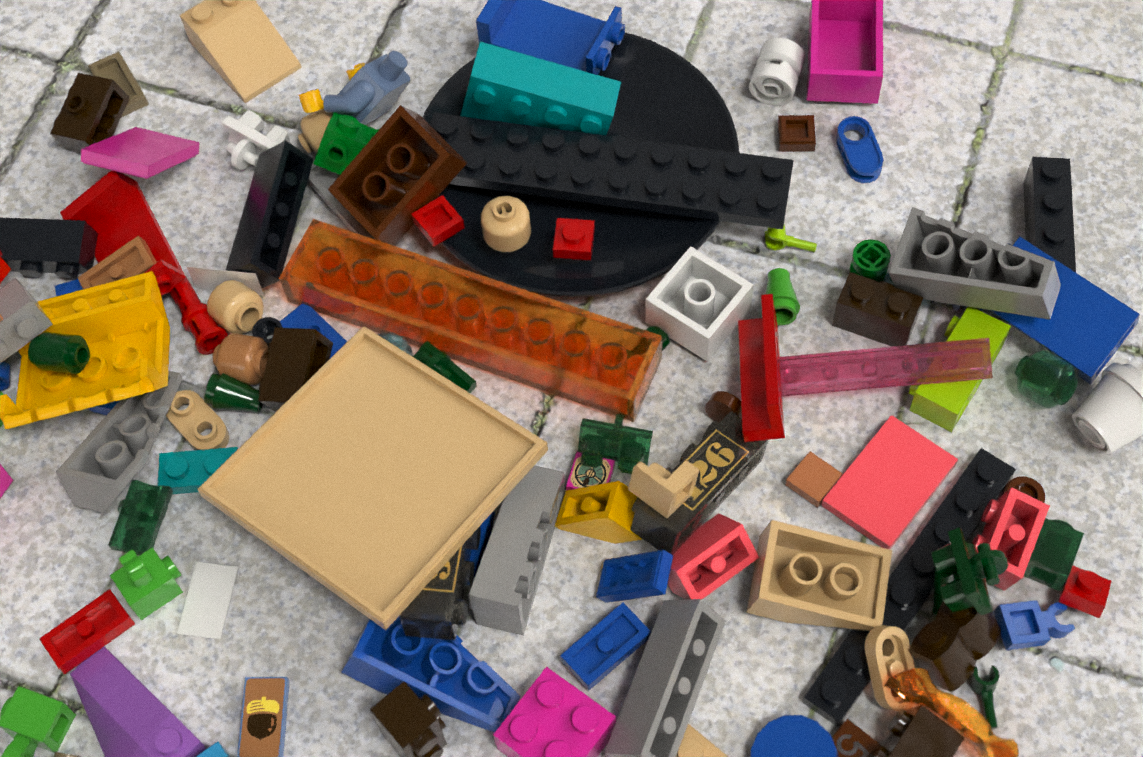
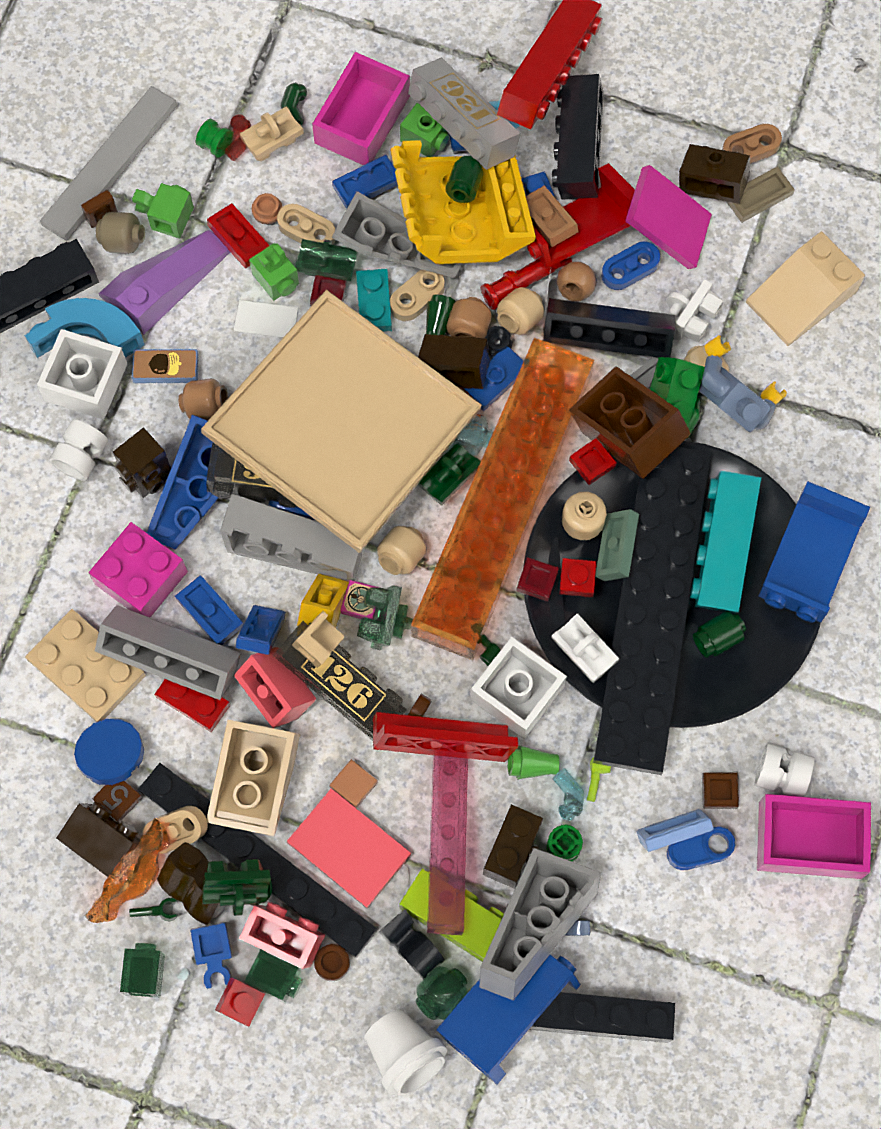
camera: 85 degrees right, 10 degrees up
(34, 480) = (368, 180): none -> blue plate
(52, 599) = (266, 208): none -> nougat plate
(54, 82) = (749, 142): none -> medium nougat plate
(86, 549) = (308, 225): none -> tan plate
(181, 524) = (334, 286): none -> dark red tile
(192, 203) = (629, 267): none -> blue plate
(205, 249) = (576, 281): none -> medium nougat piece
(319, 662) = (202, 398): none -> medium nougat head
(538, 420) = (401, 550): none -> tan head
(543, 195) = (617, 545): none -> sand green plate
(575, 277) = (537, 579): none -> dark red tile
(641, 107) = (719, 634): none -> dark green brick
(660, 223) = (585, 648): none -> white hips
(728, 661) = (194, 705): none -> red plate
(813, 259) = (573, 795): none -> clear light blue arm
(845, 166) = (674, 830): none -> medium blue tile
(994, 413) = (412, 944): none -> black leg
(1067, 702) = (142, 971): none -> clear green brick

